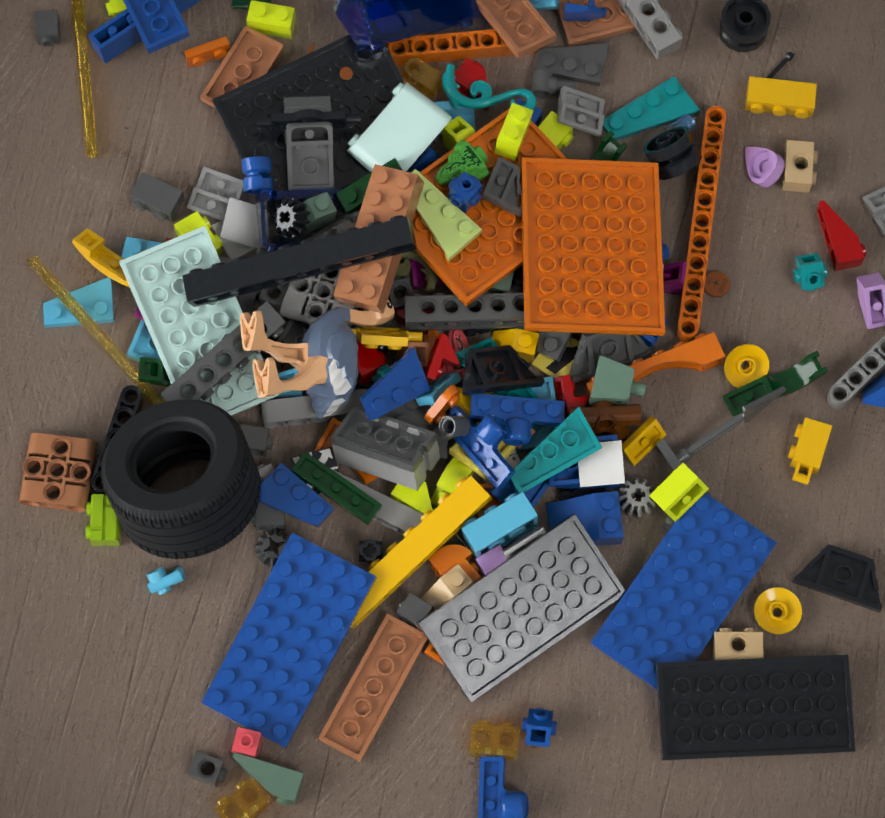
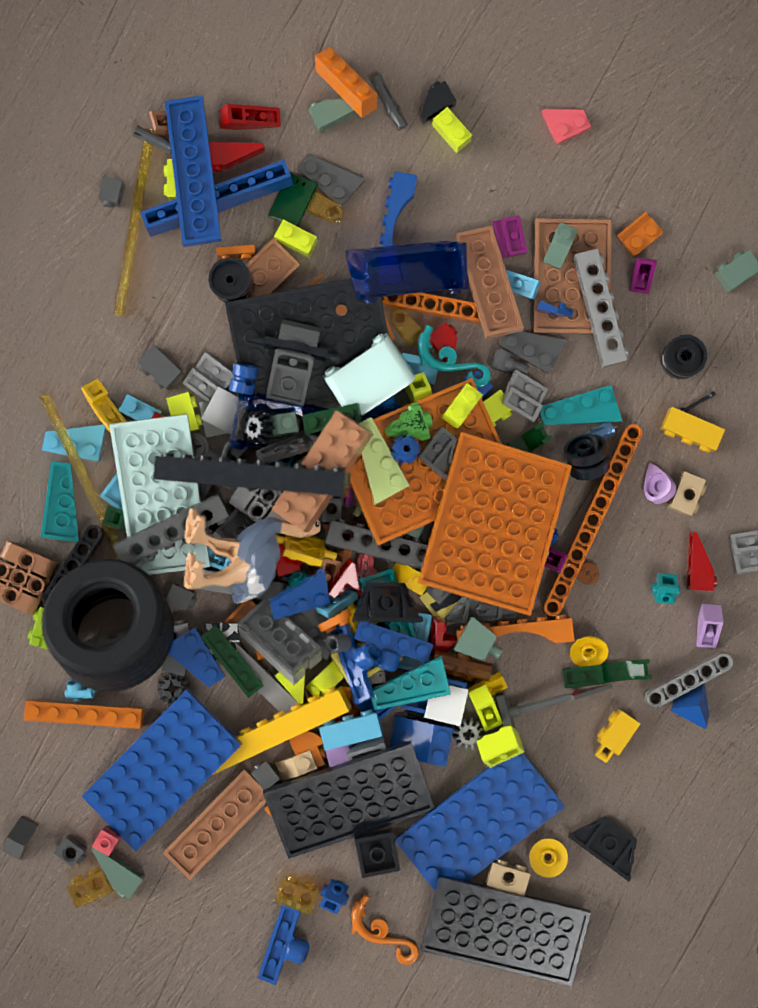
camera: 15 degrees right, 15 degrees up
(83, 383) = (59, 510): none -> teal wing
(139, 775) = (19, 838): none -> dark grey slope
(206, 596) = (84, 714): none -> orange arch
(210, 75) = (223, 272): none -> black wheel
(370, 550) = (245, 717): black piece -> none
(574, 661) = (377, 853): none -> black brick
(577, 757) = (379, 938): none -> orange plant
(648, 458) = (485, 707): none -> neon yellow brick

